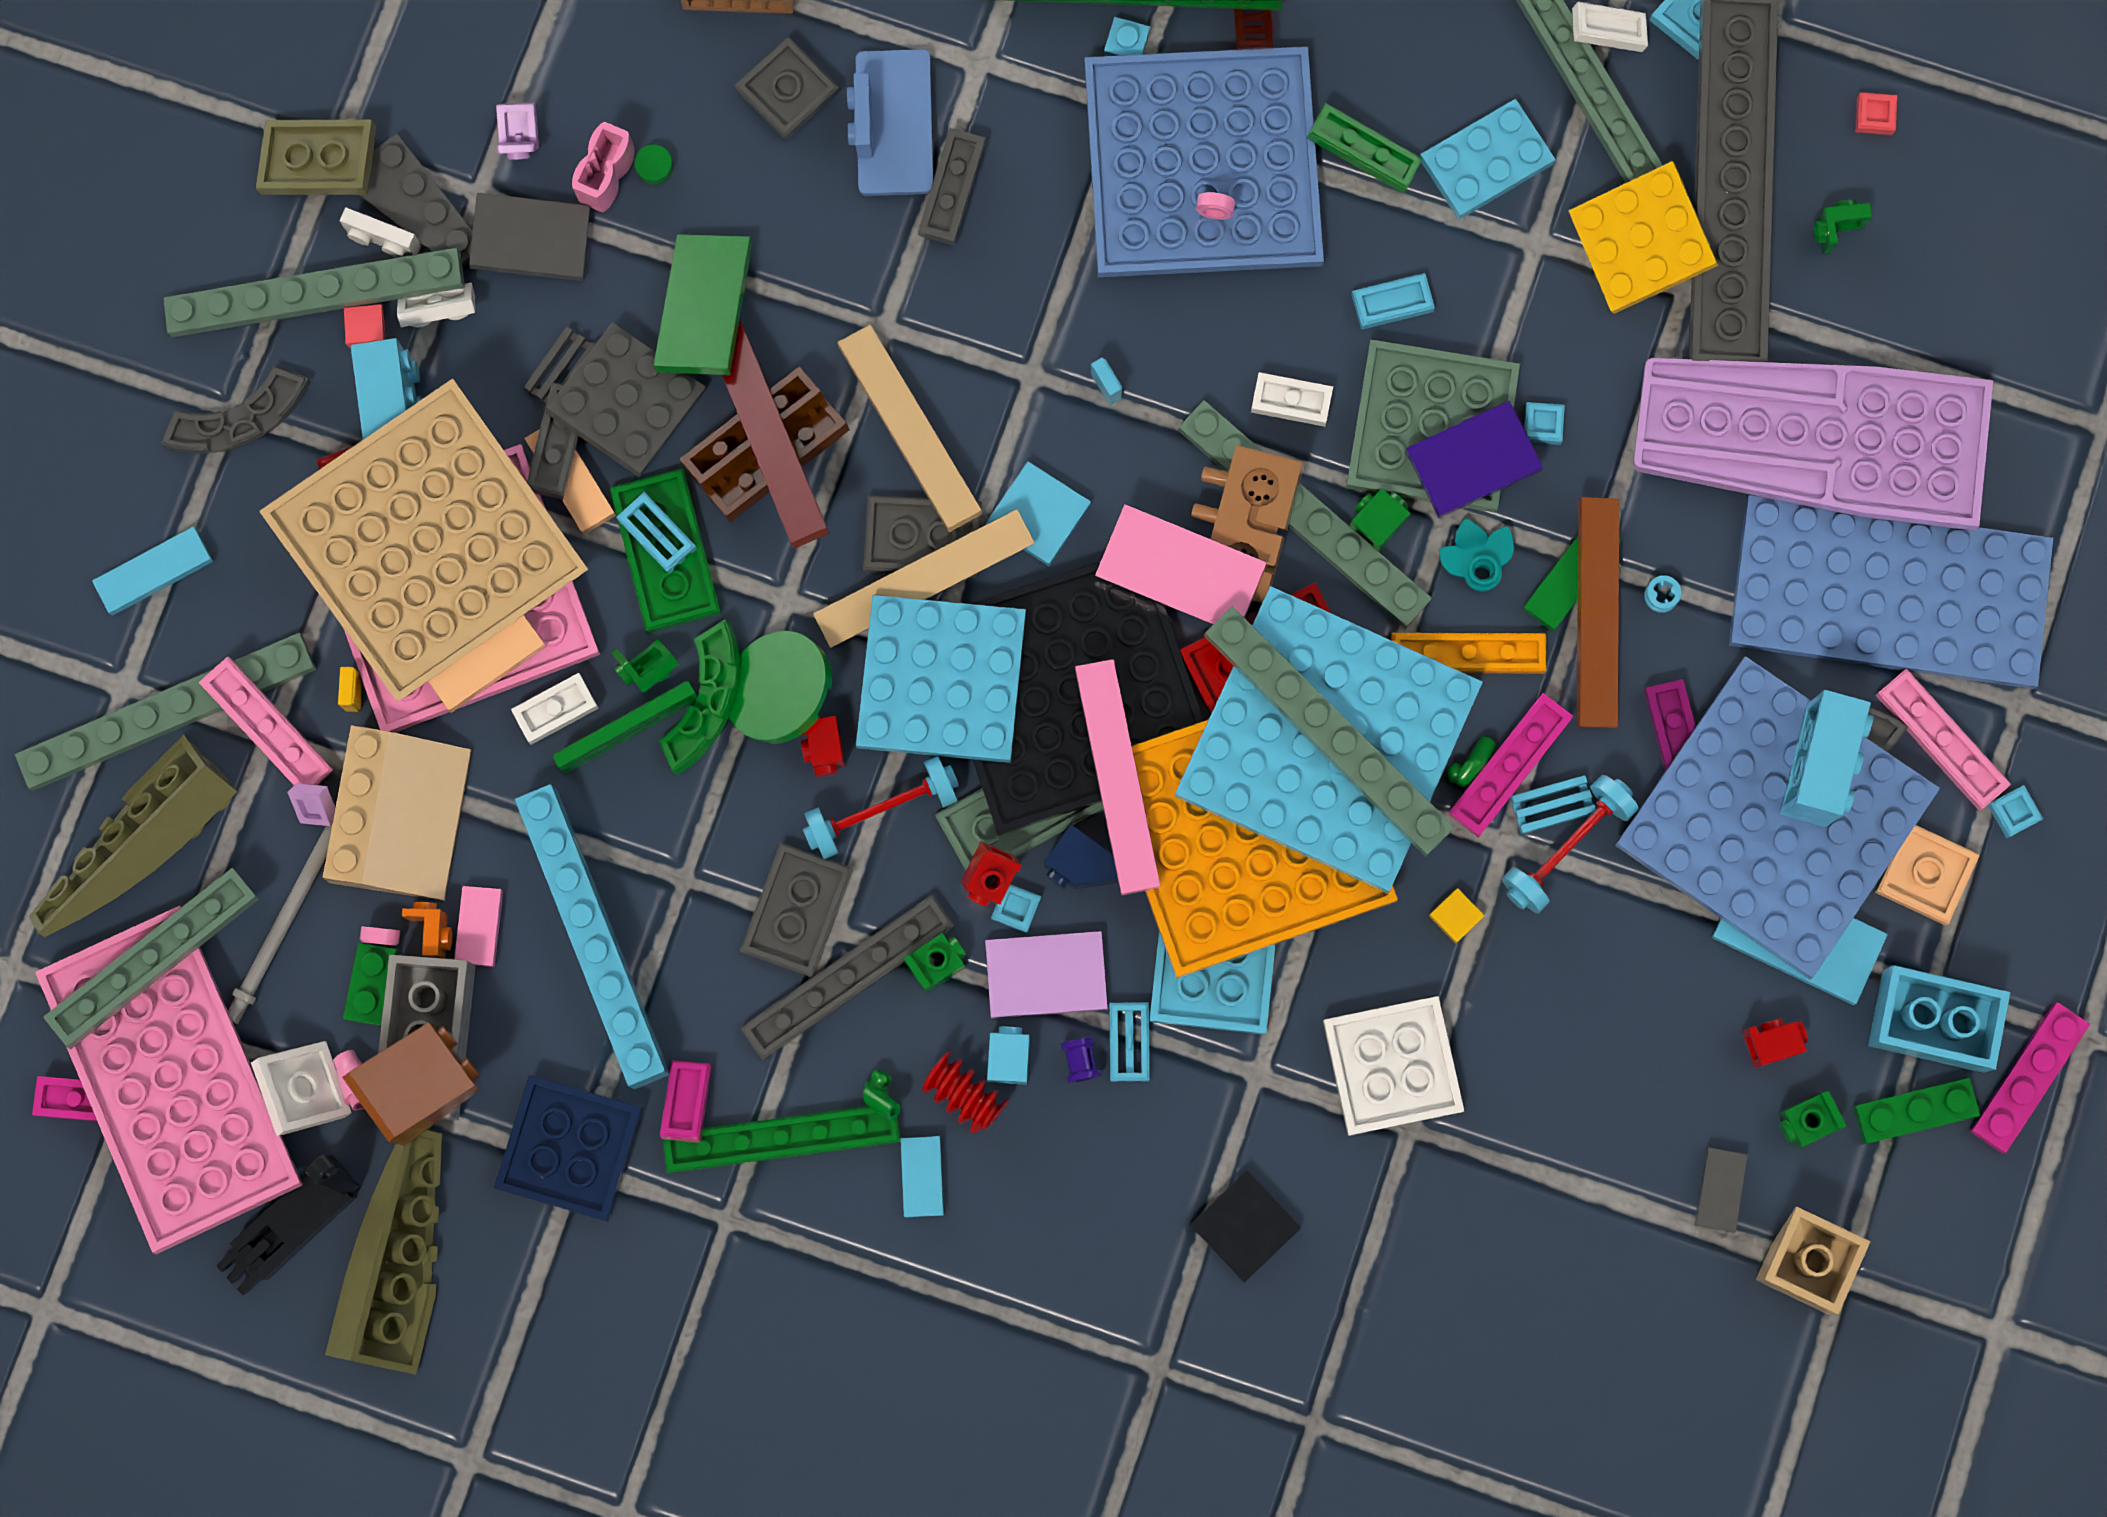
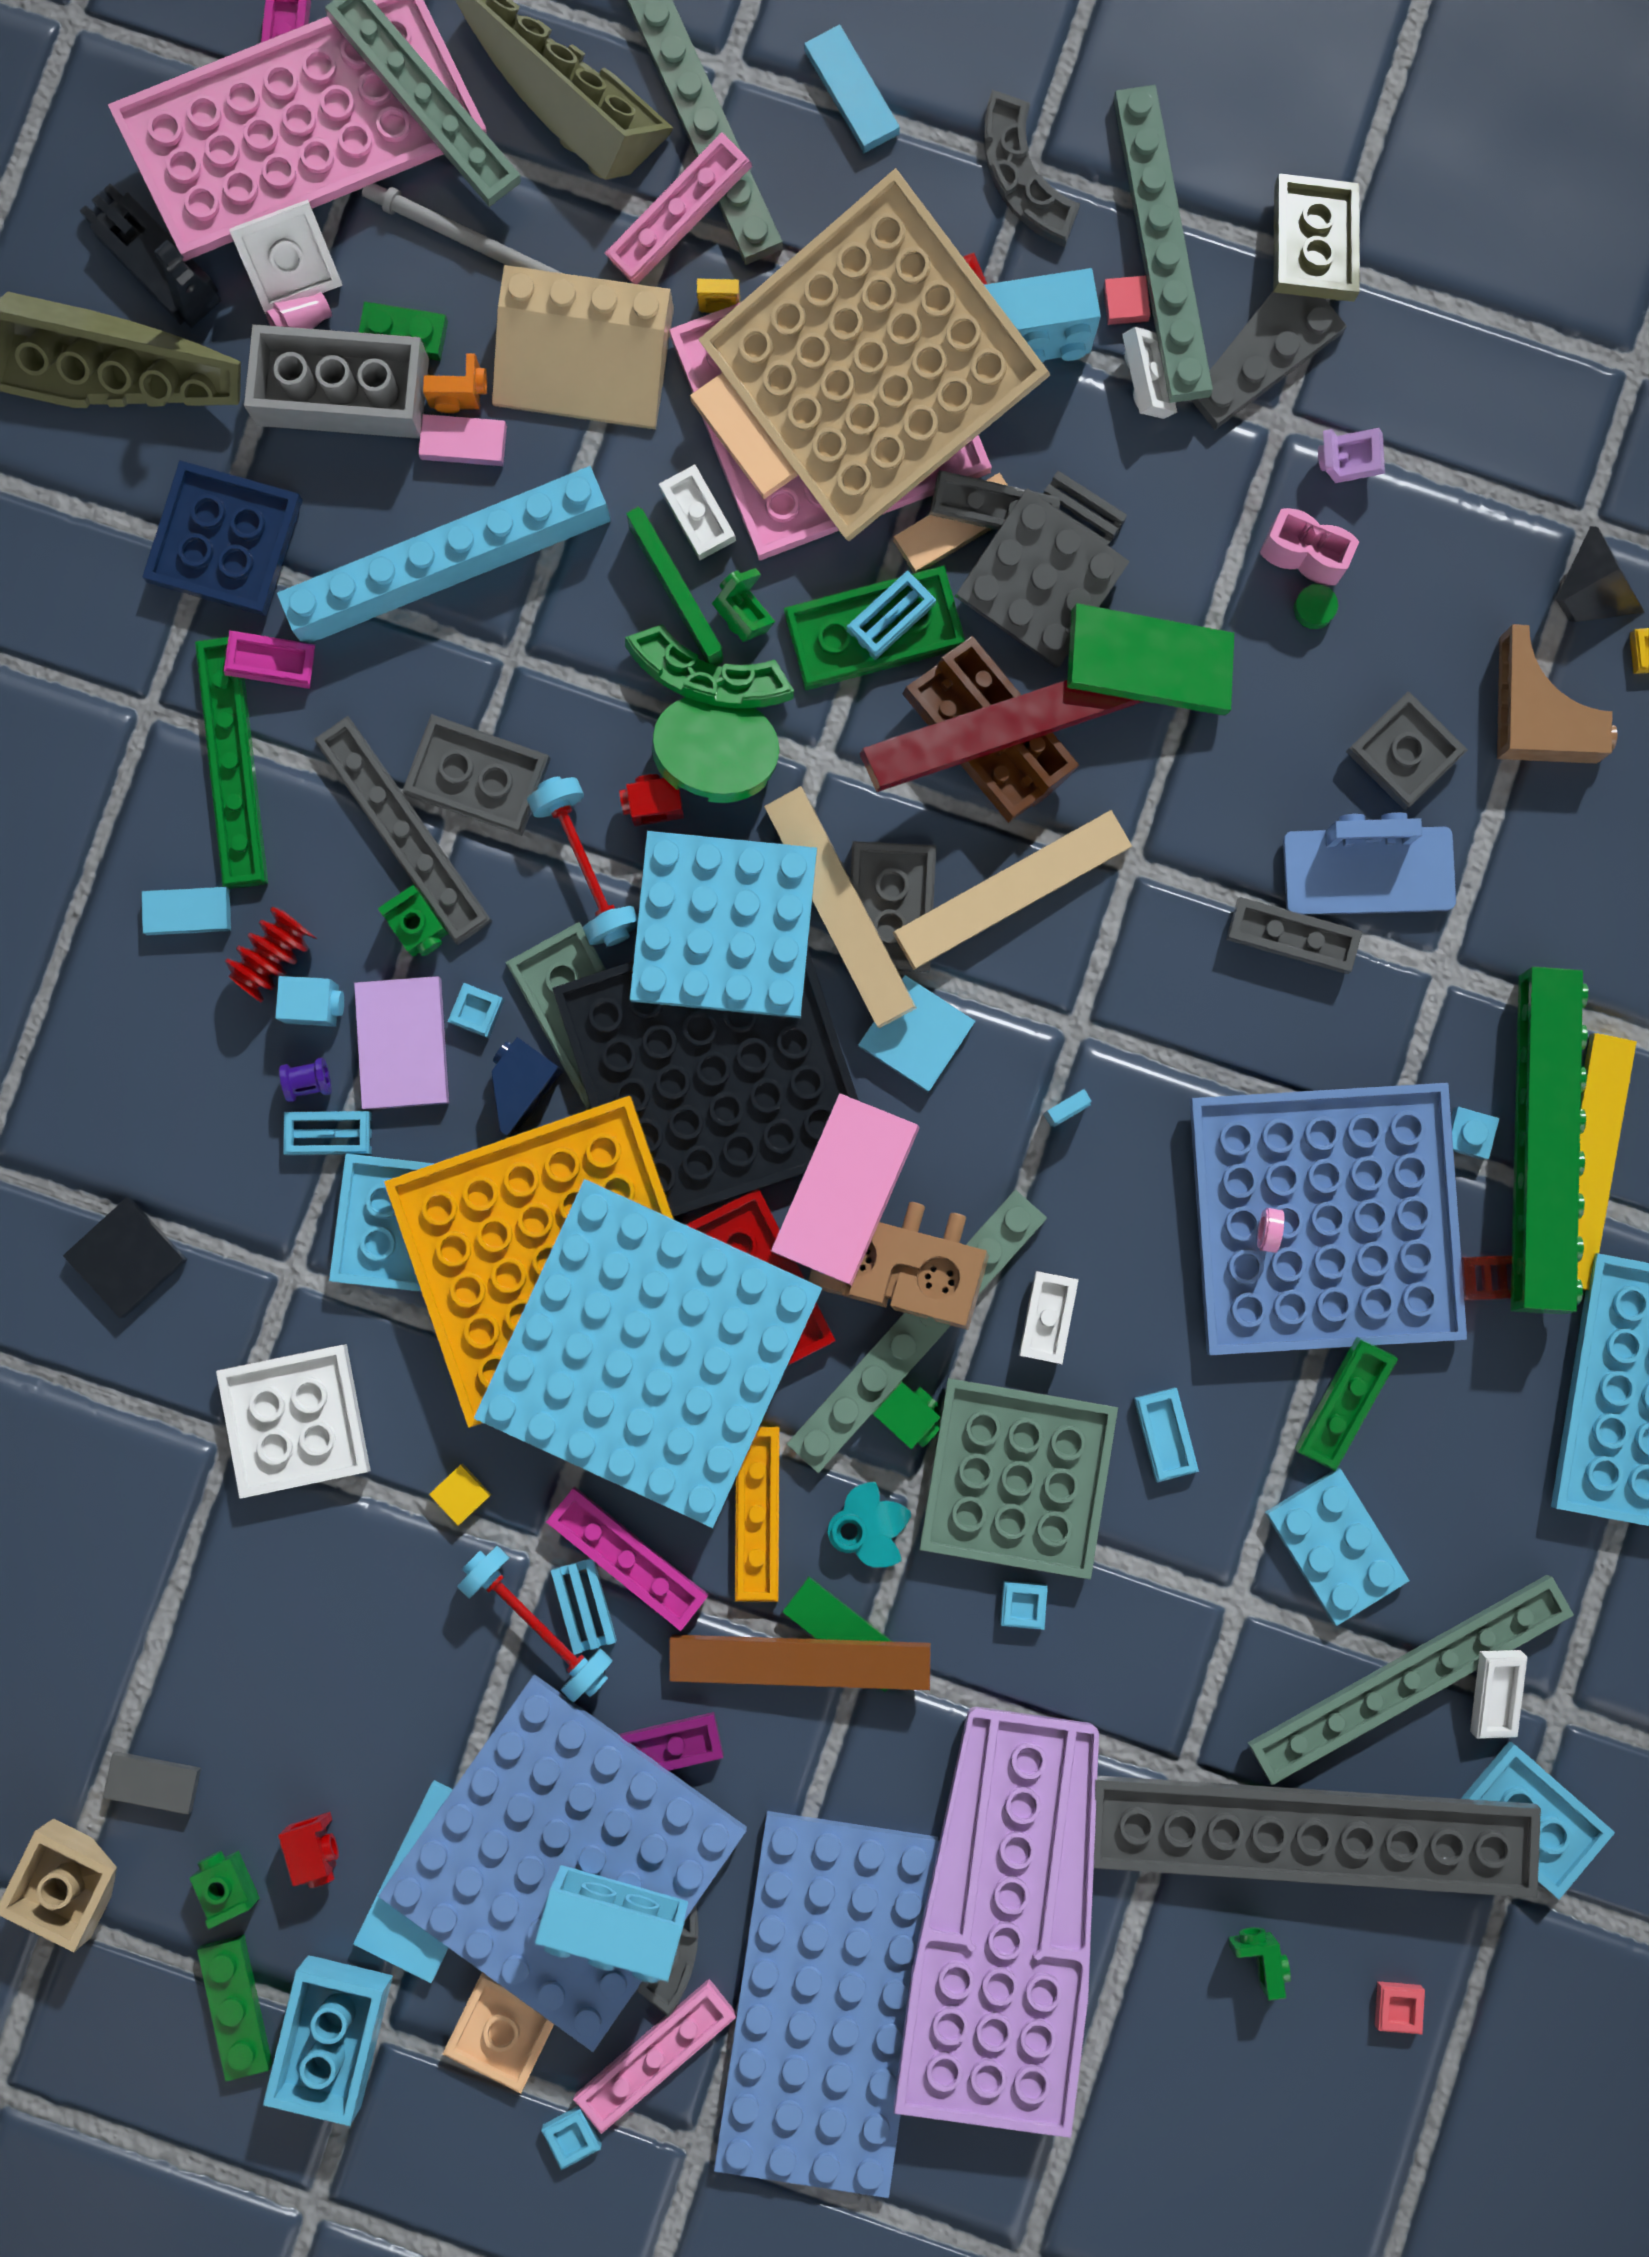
camera: 85 degrees right, 5 degrees up
(312, 804) = (594, 257): lavender plate -> none
(367, 229) = (1233, 294): white plate -> none
(379, 936) = (451, 335): bright pink tile -> none
(413, 1083) = (267, 355): dark orange slope -> none
(529, 237) = (1229, 471): dark grey tile -> none
(876, 1095) = (271, 860): green arm -> none
(985, 862) = (507, 979): red brick -> none
(1117, 777) = (604, 1115): bright pink tile -> none
(1328, 731) = (650, 1352): sand green plate -> none
(1474, 459) = (976, 1523): dark purple tile -> none
(1475, 762) = (631, 1520): green arm -> none
(1643, 237) = (1242, 1727): yellow plate -> none
(1674, 593) = (827, 1750): medium azure bush -> none
(2029, 1077) = (270, 2139): dark pink plate -> none

